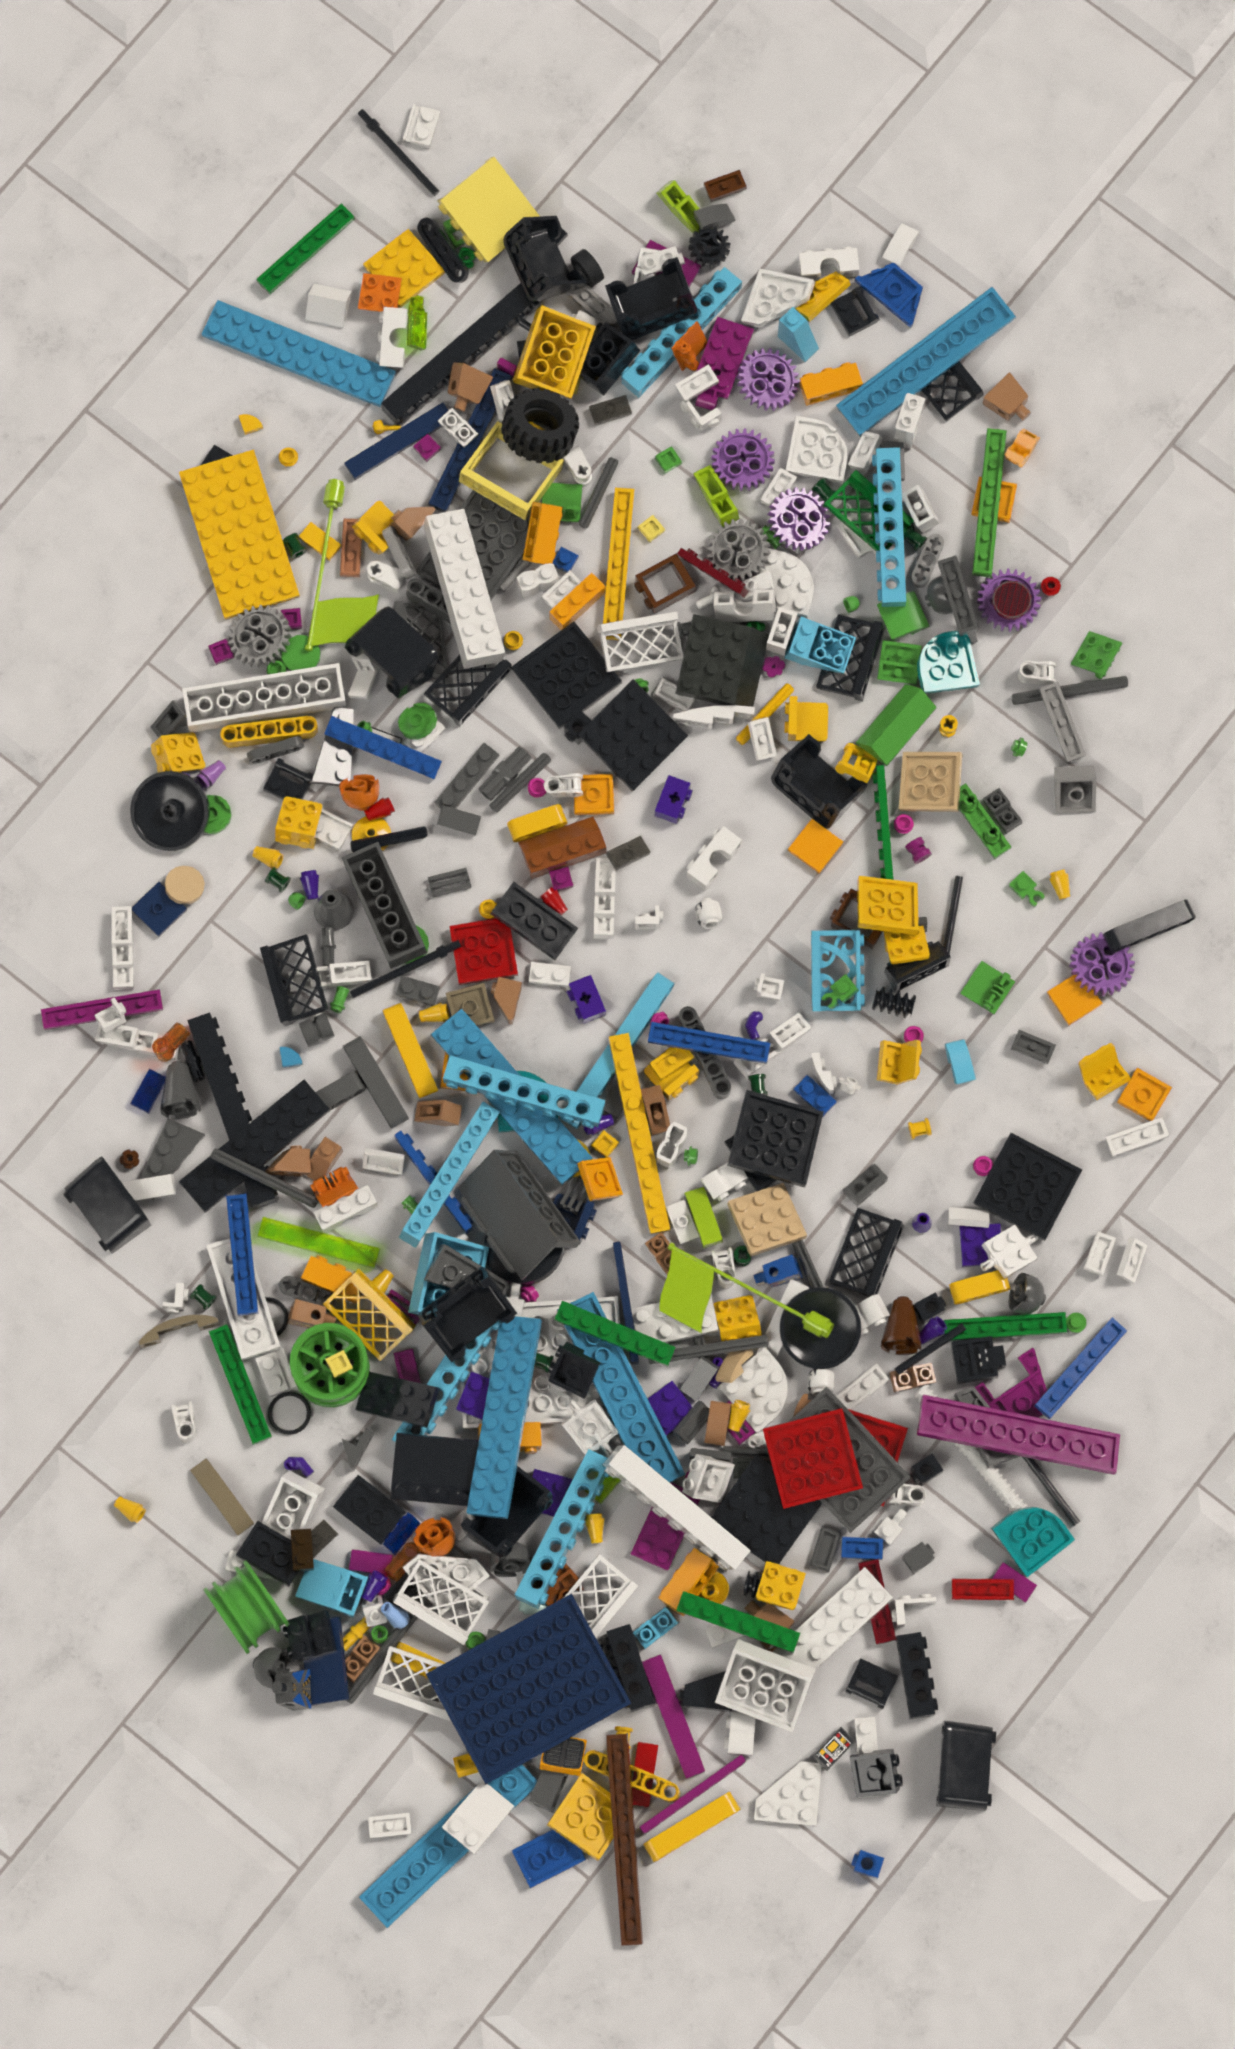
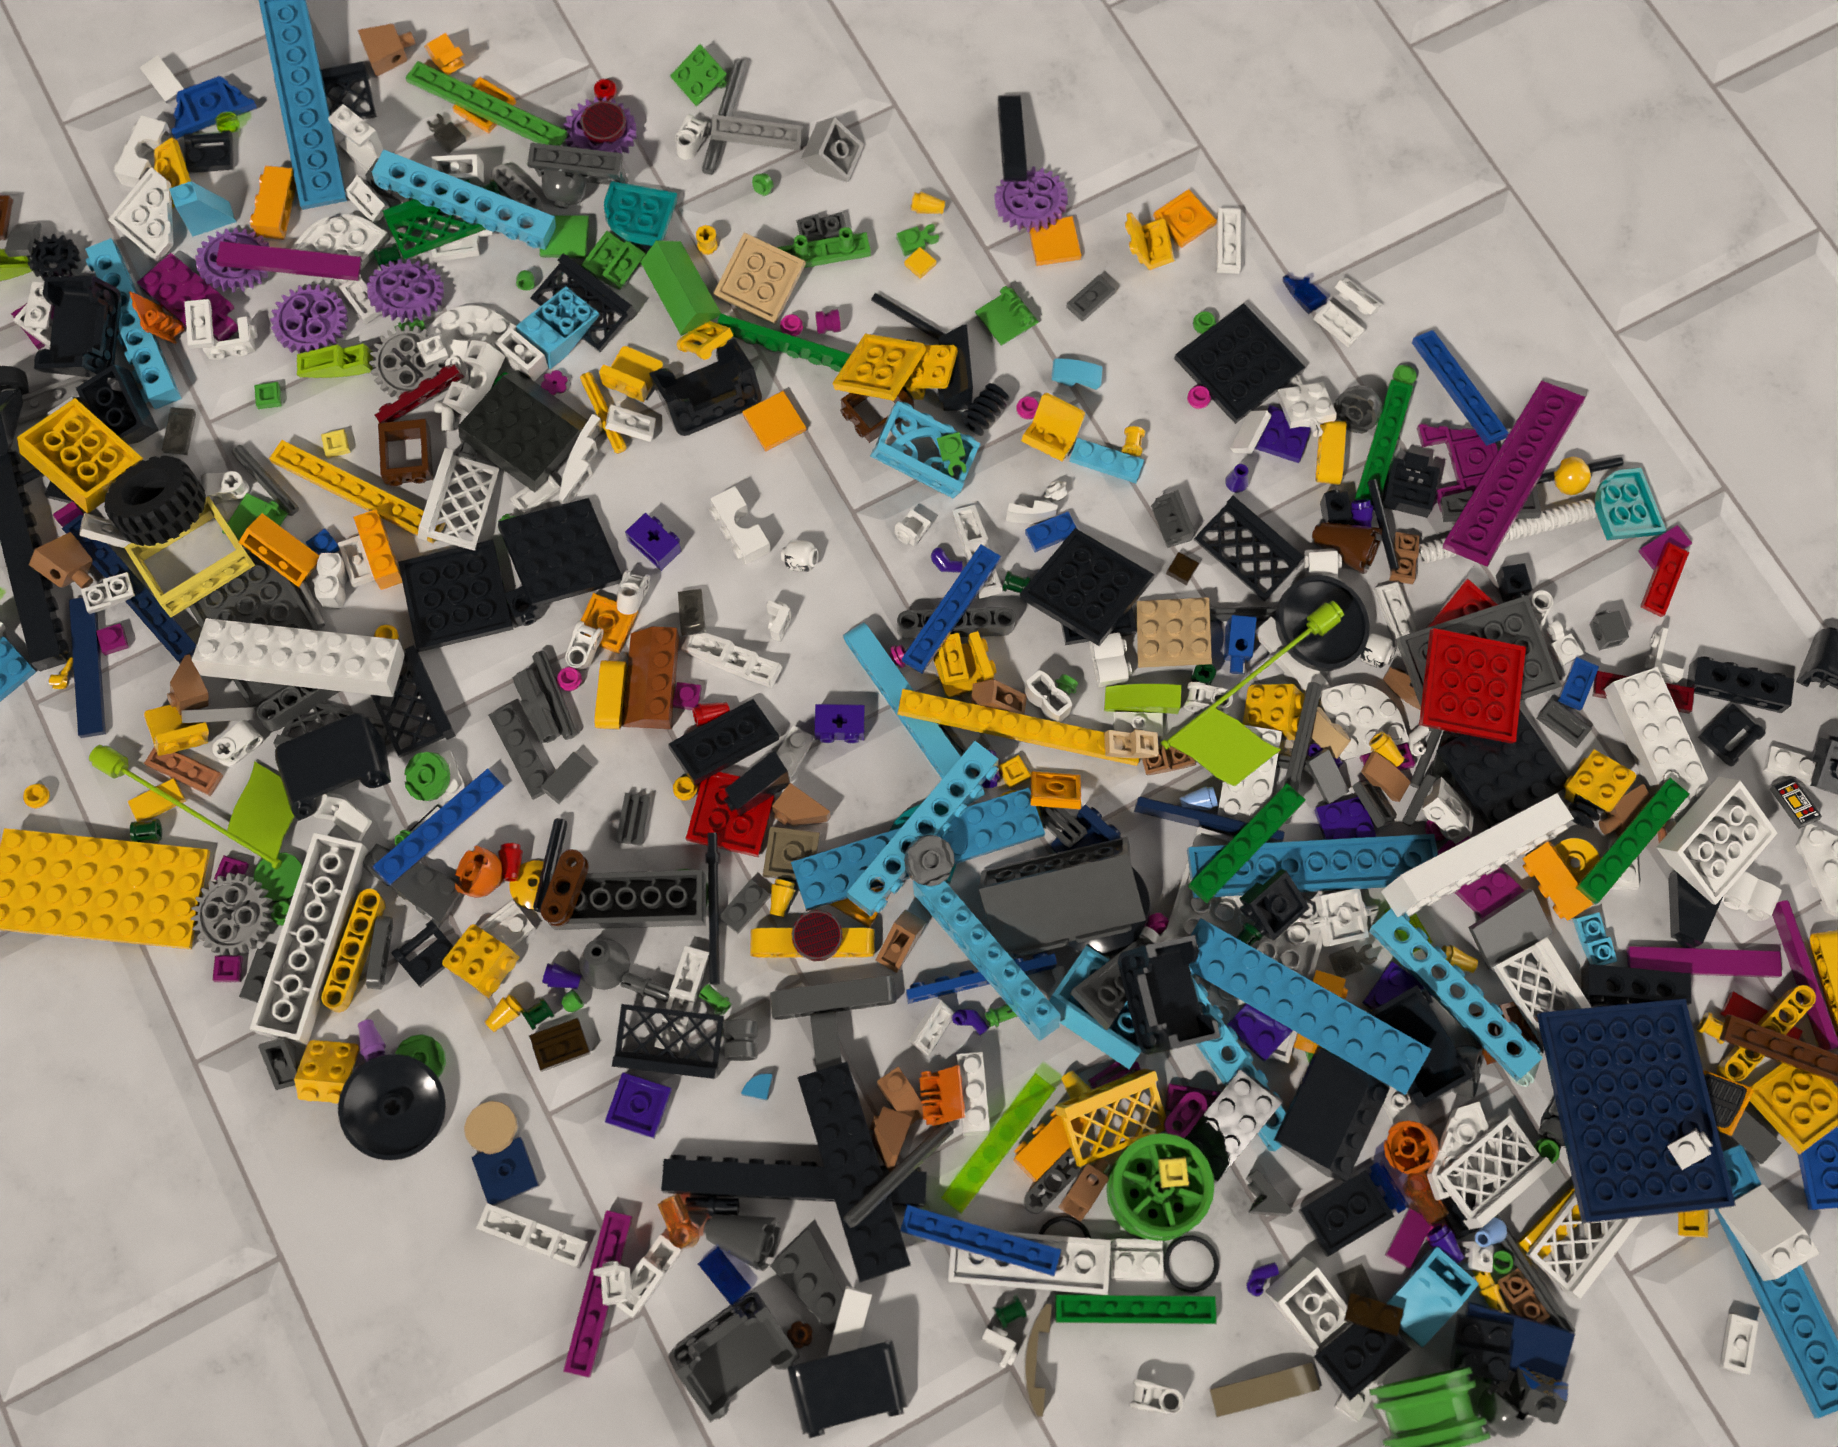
camera: 70 degrees left, 5 degrees down
(96, 1117) = (731, 1354): none -> dark grey windscreen
(224, 674) = (256, 975): none -> dark grey plate
(241, 979) = (638, 1105): none -> dark purple plate
(262, 905) = (559, 1044): none -> dark brown plate
(359, 852) = (564, 874): none -> reddish brown piece
(393, 1366) = (1186, 1116): none -> magenta plate
(402, 1187) = (970, 1017): none -> dark purple arm
(413, 1050) = (817, 935): none -> tile
(498, 1104) = (929, 860): none -> dark grey tile
(507, 958) = (757, 784): none -> black slope
(513, 1735) = (1690, 1148): none -> white bracket
(560, 1446) = (1349, 962): none -> clear smoke plate
(627, 801) = (631, 592): none -> white piece
(635, 1558) = (1510, 929): none -> tile
(642, 1292) = (1200, 799): none -> light blue cone
(659, 1220) = (1131, 745): none -> tan slope
(752, 564) = (432, 350): none -> white tile
(781, 422) = (289, 261): none -> magenta tile
(828, 1208) = (1182, 568): none -> dark brown plate
(884, 313) = (227, 121): none -> clear neon green tile
(895, 1115) = (1106, 460): none -> medium azure plate
(953, 484) = (446, 135): none -> clear smoke plate
(1006, 900) = (920, 262): none -> yellow tile
(1042, 1486) = (1572, 476): none -> yellow hair
(1053, 1145) = (1203, 322): none -> bright green plate
(1117, 1217) = (1305, 293): none -> clear blue slope

